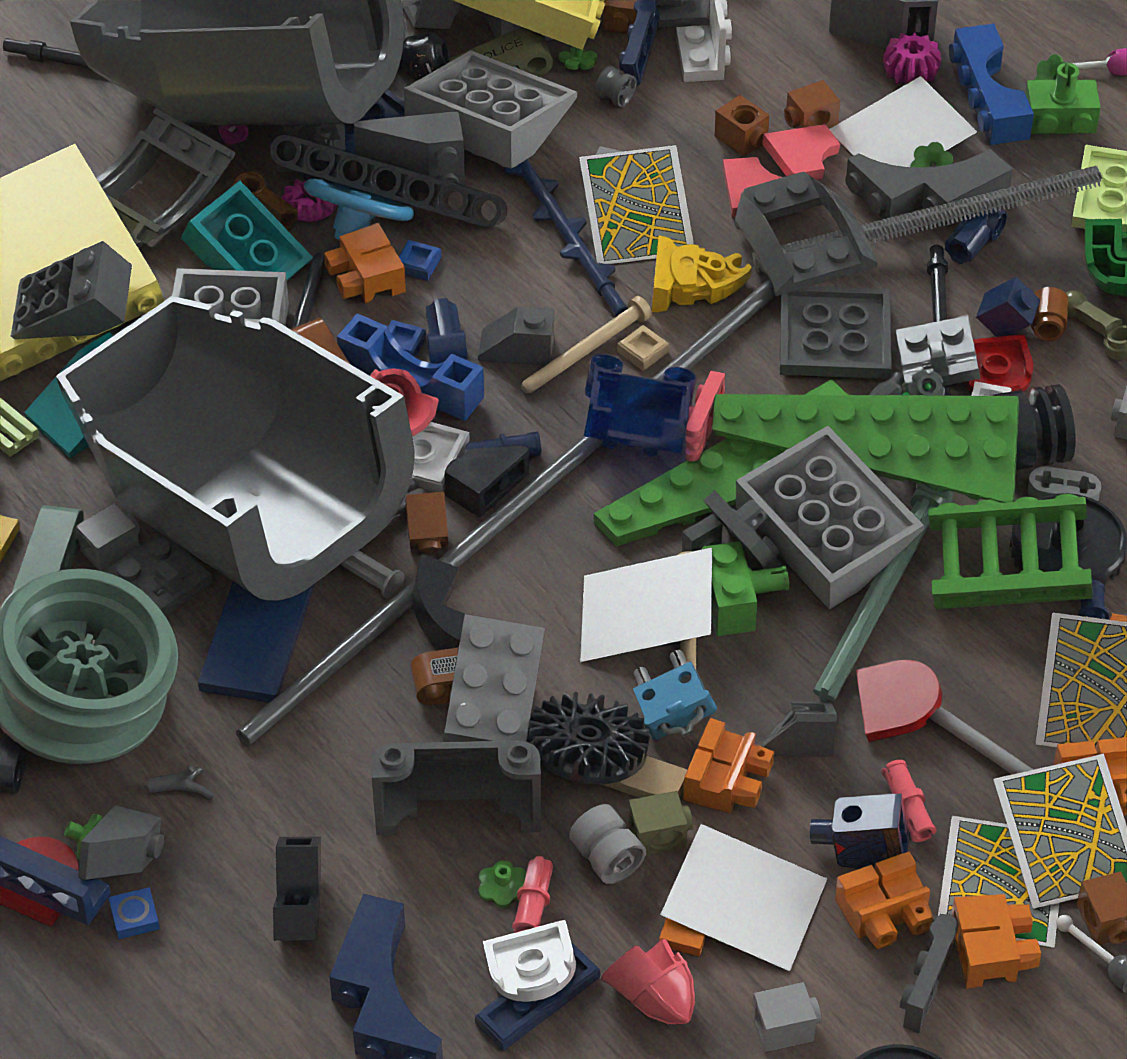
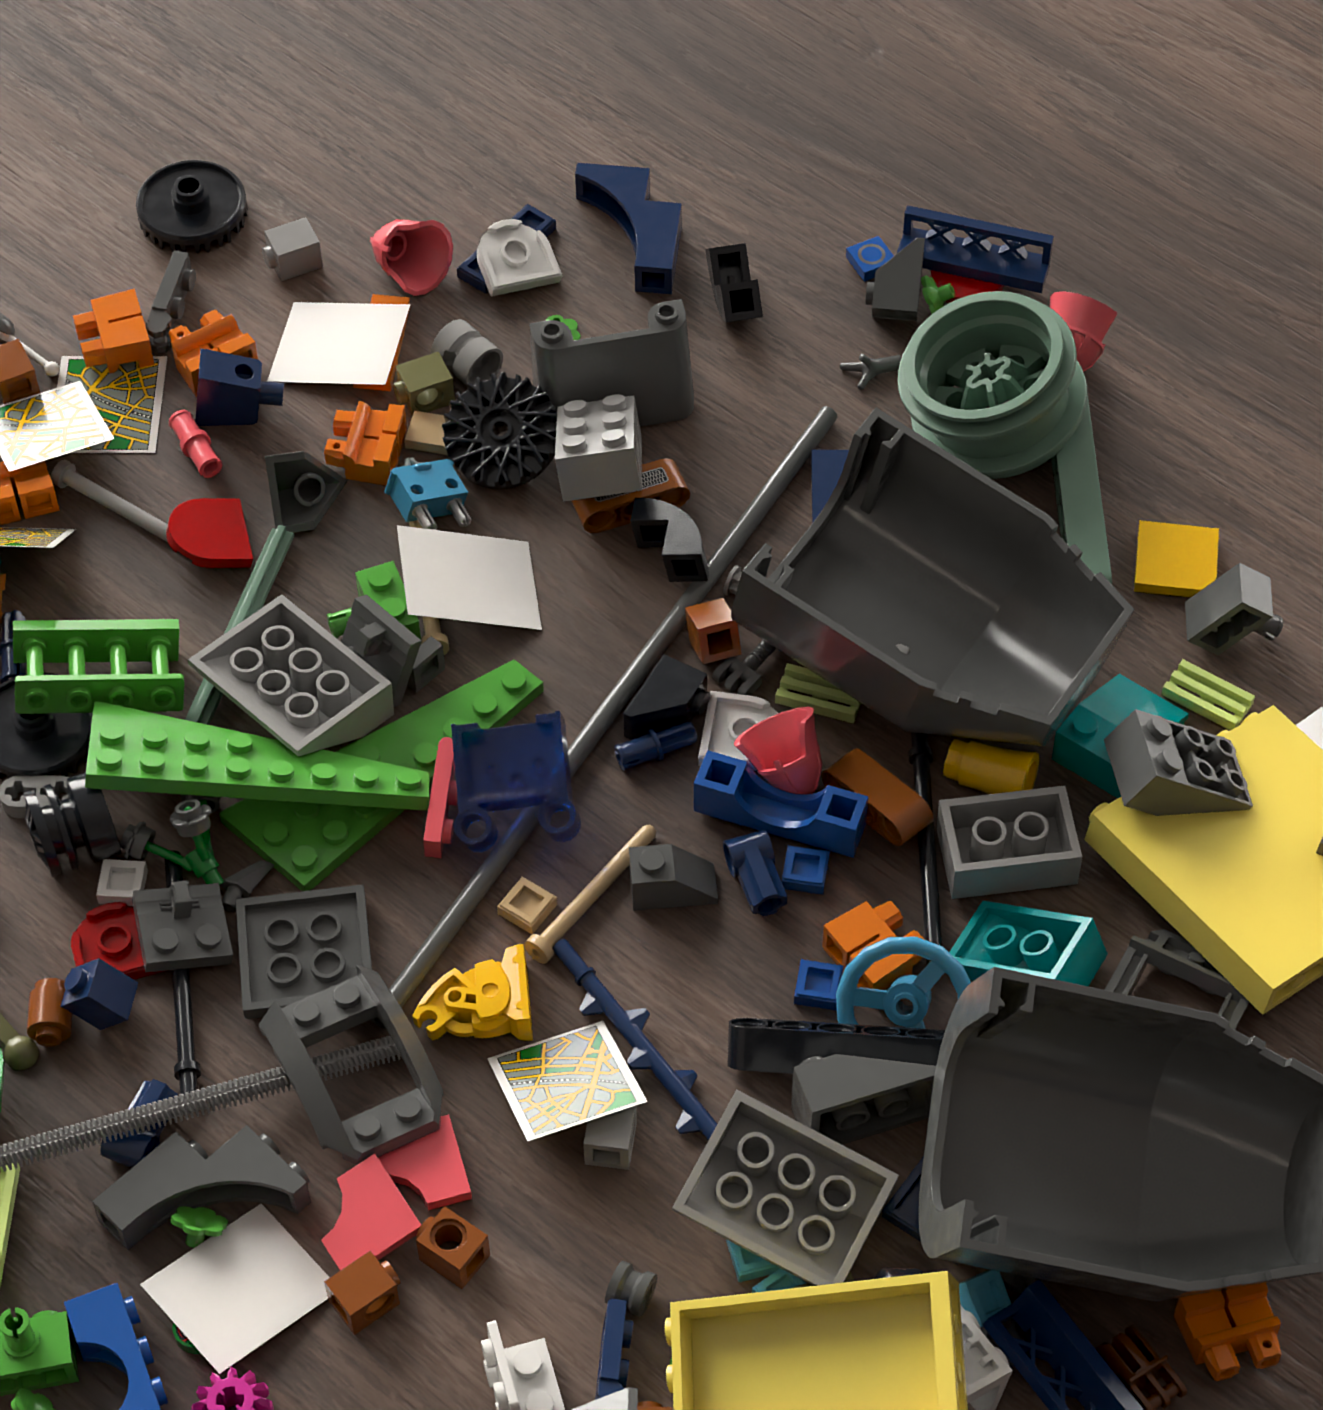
camera: 170 degrees right, 5 degrees up
(533, 894) = (525, 313): coral axle -> none

